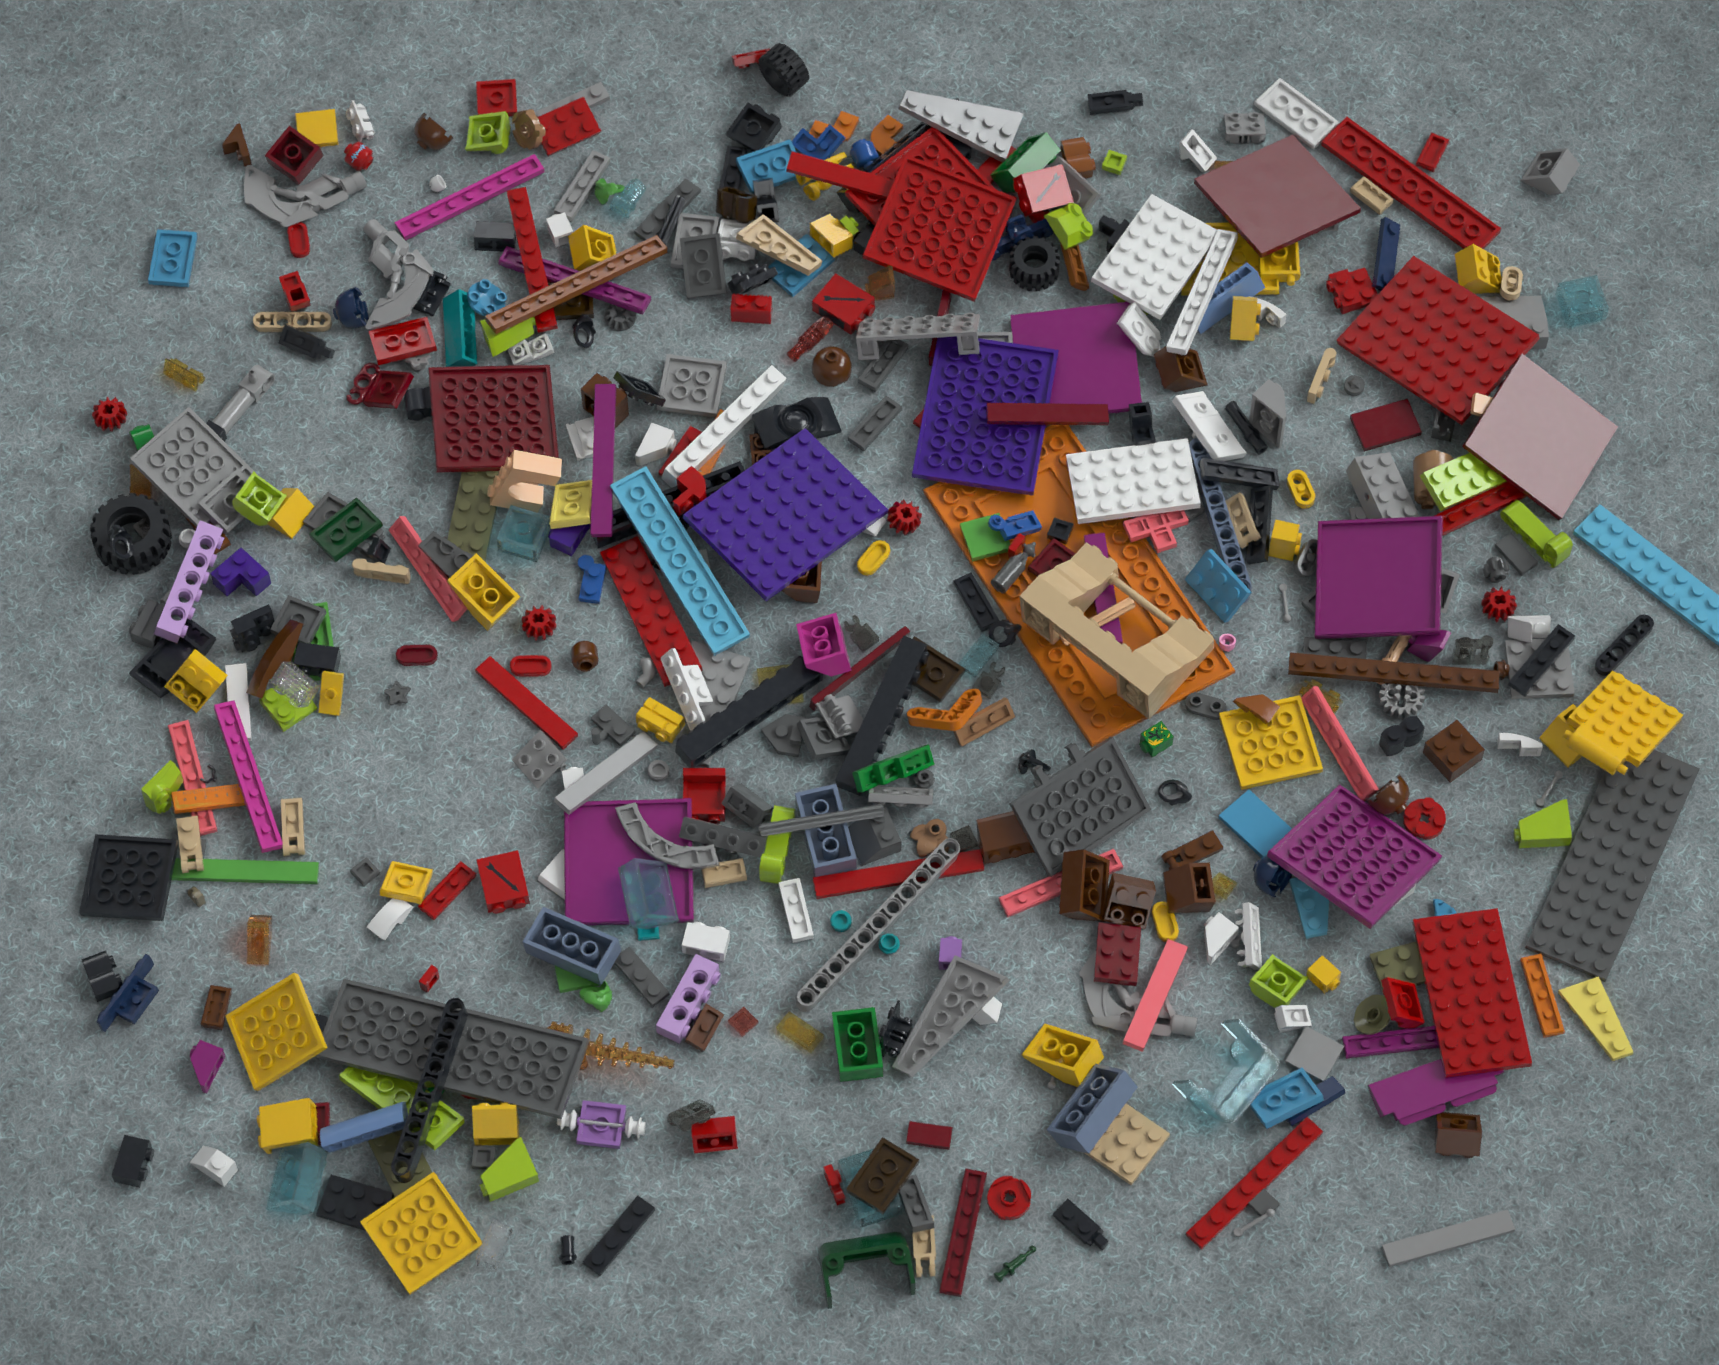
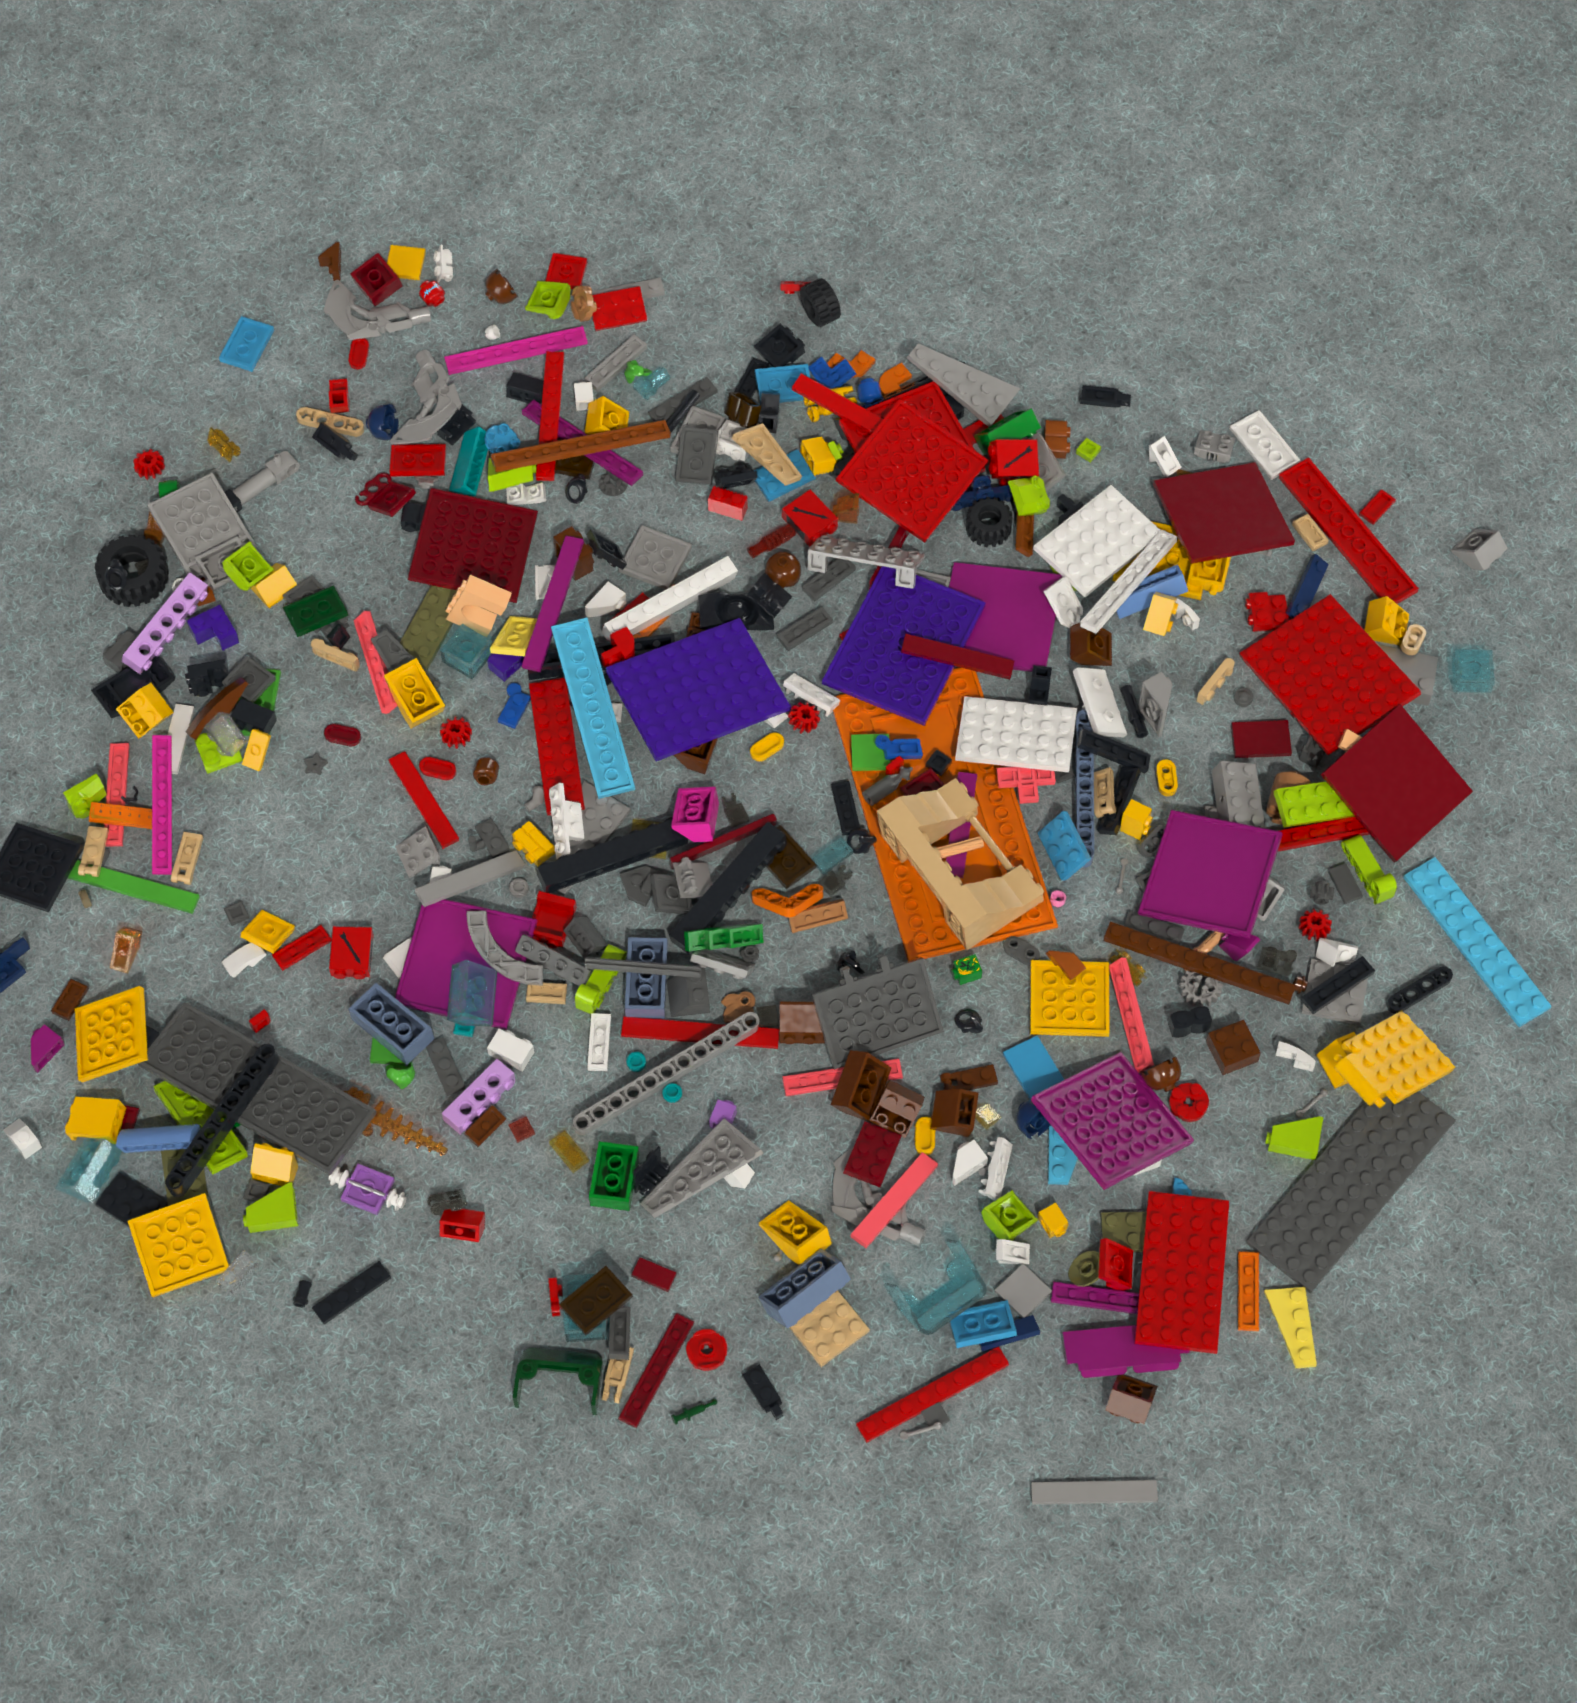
camera: 15 degrees right, 0 degrees up
(827, 397) = (769, 595): none -> black hinge
(904, 490) = (811, 693): none -> white plate

